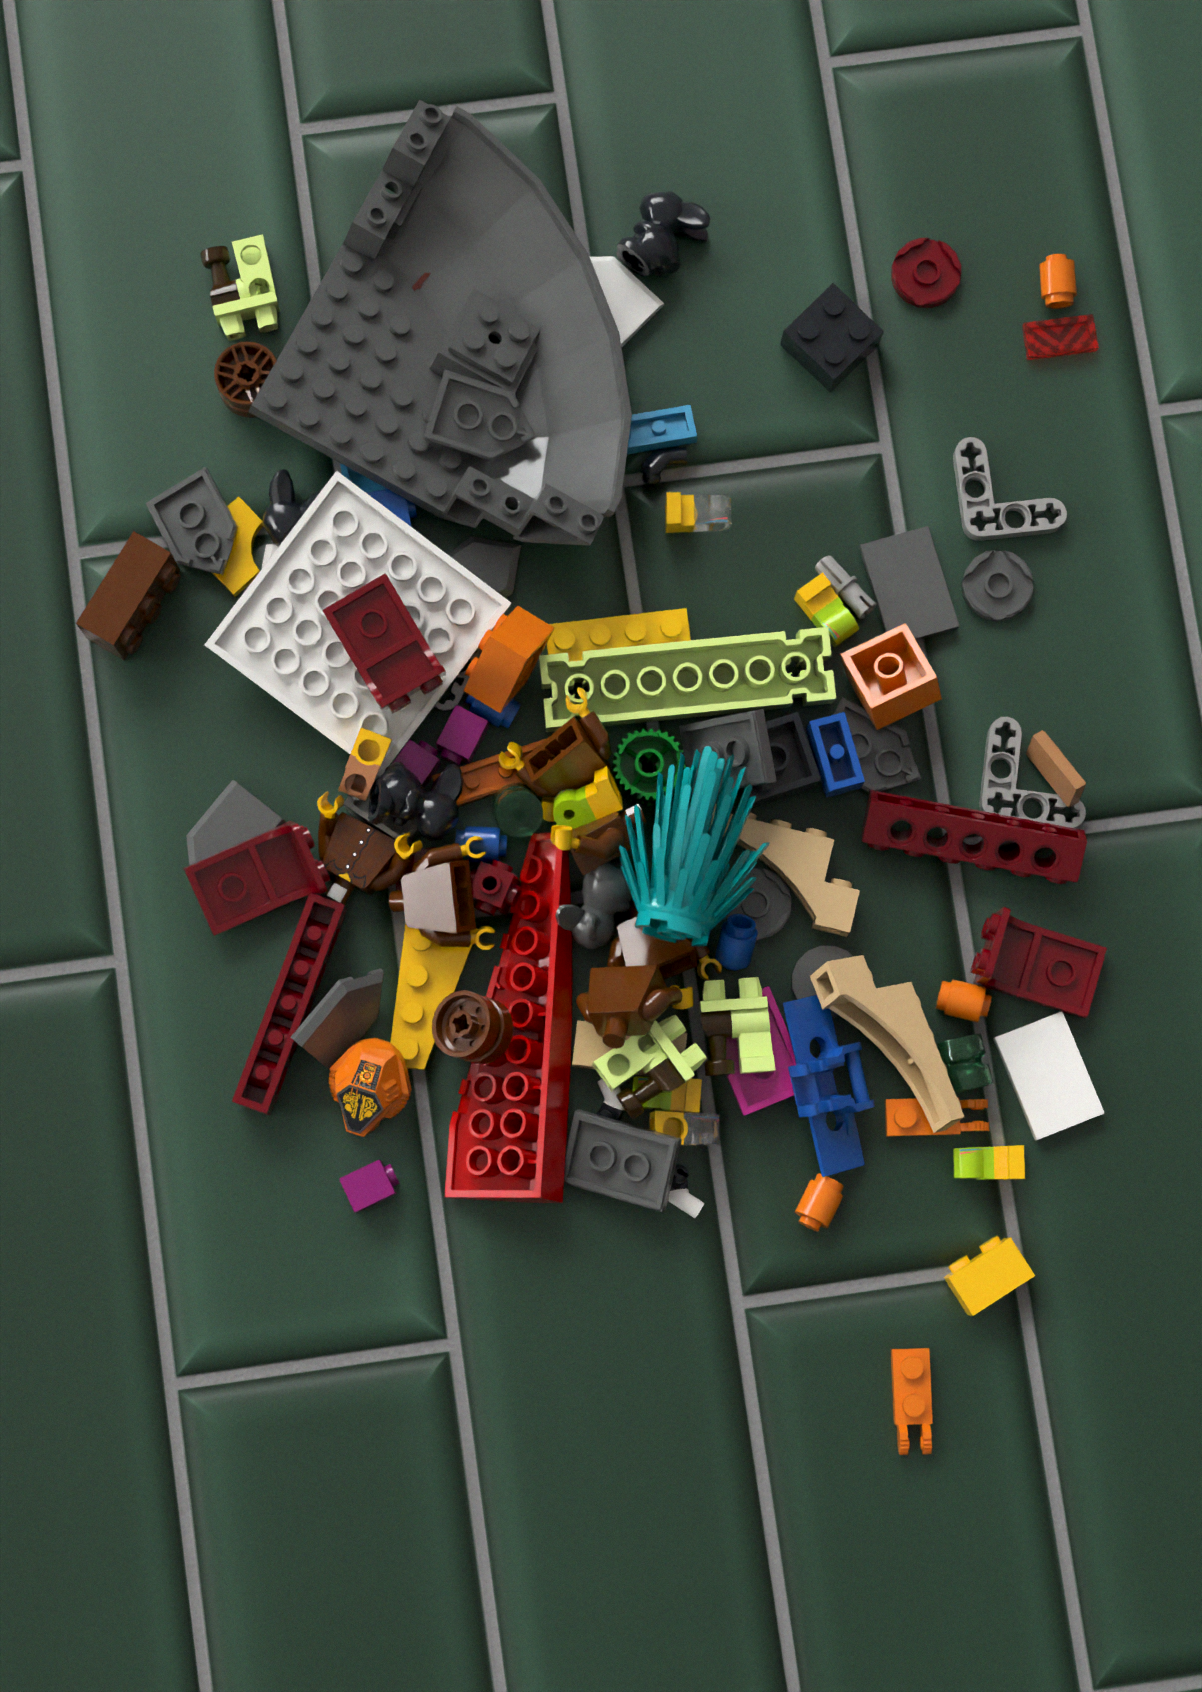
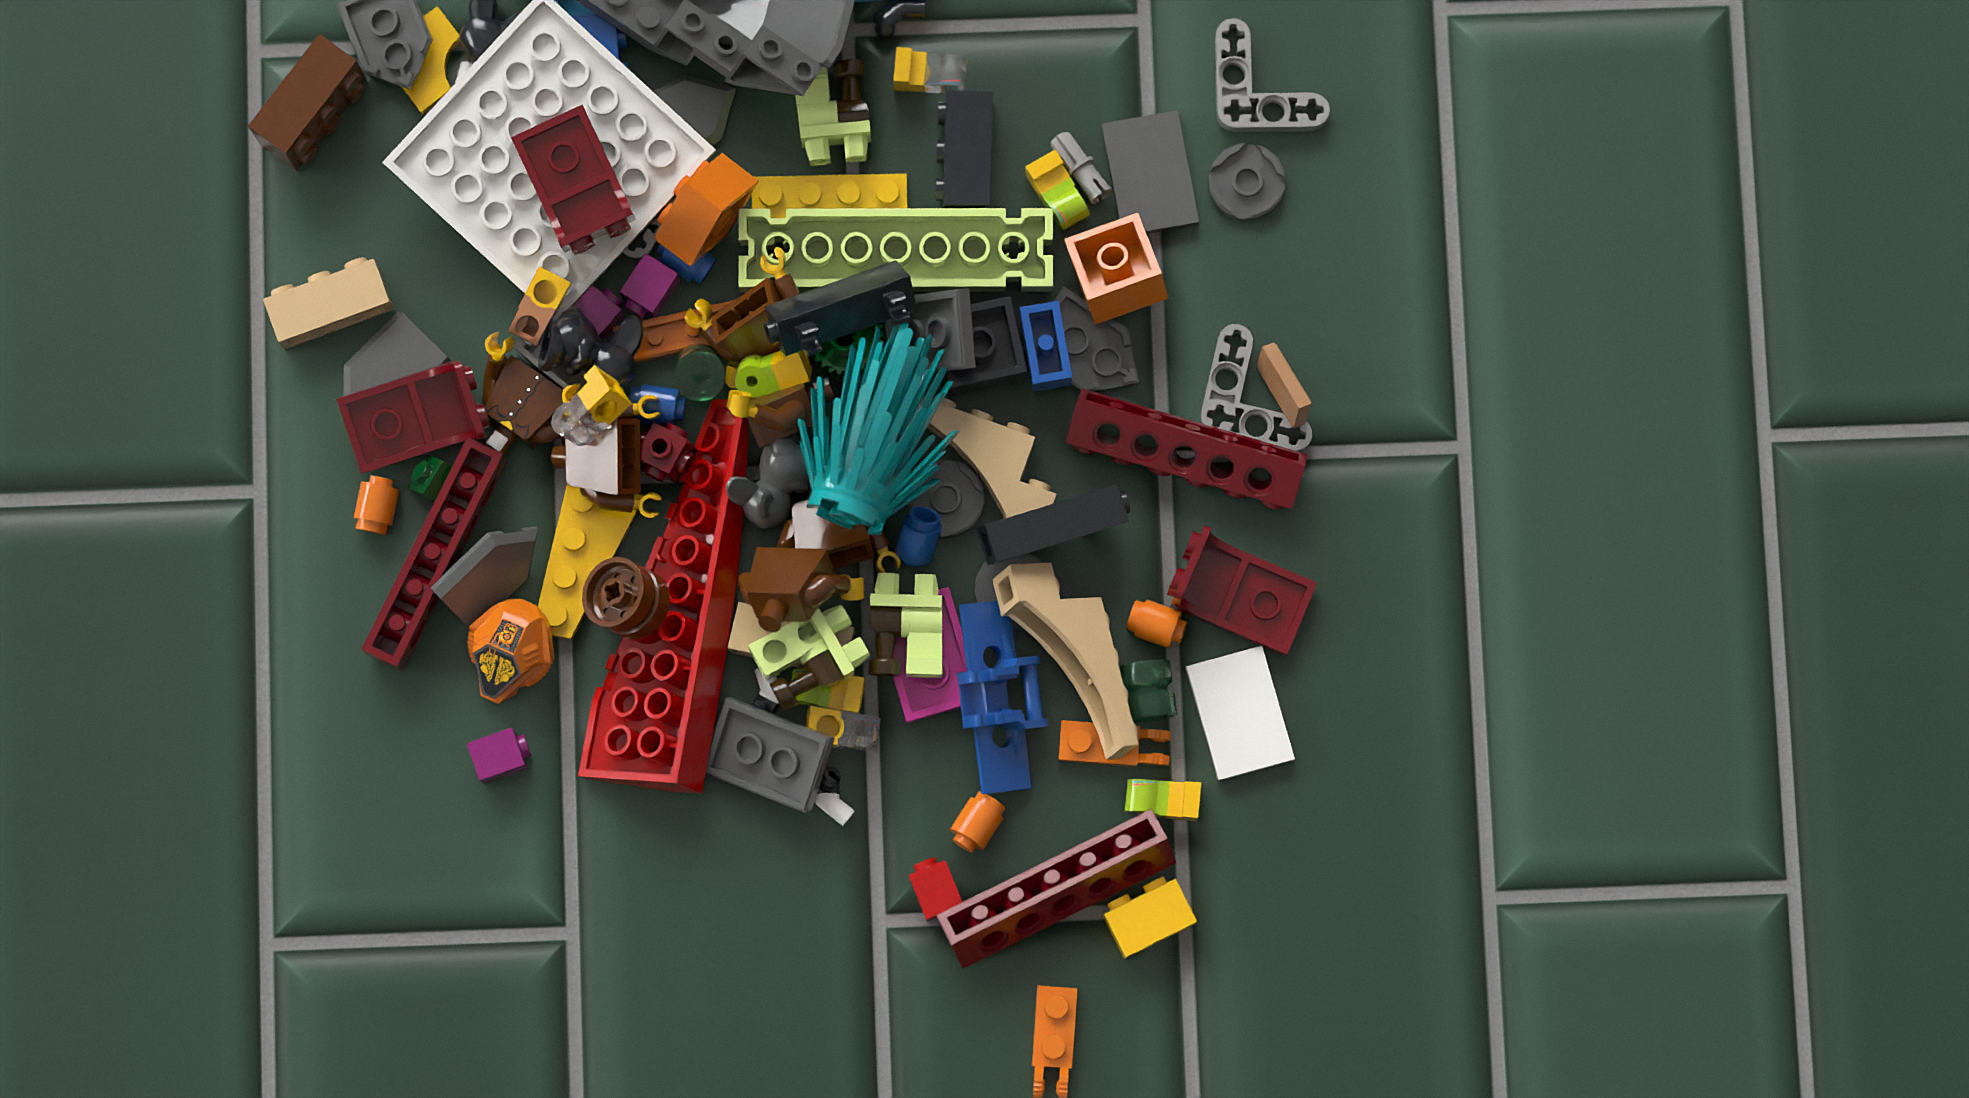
camera: 10 degrees right, 0 degrees up
(166, 779) = (328, 302): none -> tan brick
(230, 963) = (376, 505): none -> orange brick
(278, 932) = (429, 477): none -> dark green plate
(423, 855) = (590, 408): none -> leg
(616, 566) = (836, 121): none -> yellowish green hips
(645, 739) = (840, 309): none -> black brick
(739, 581) = (965, 149): none -> black brick
(787, 1269) = (934, 887): none -> red brick
(862, 919) = (1053, 524): none -> black brick
(901, 1258) = (1057, 888): none -> dark red brick

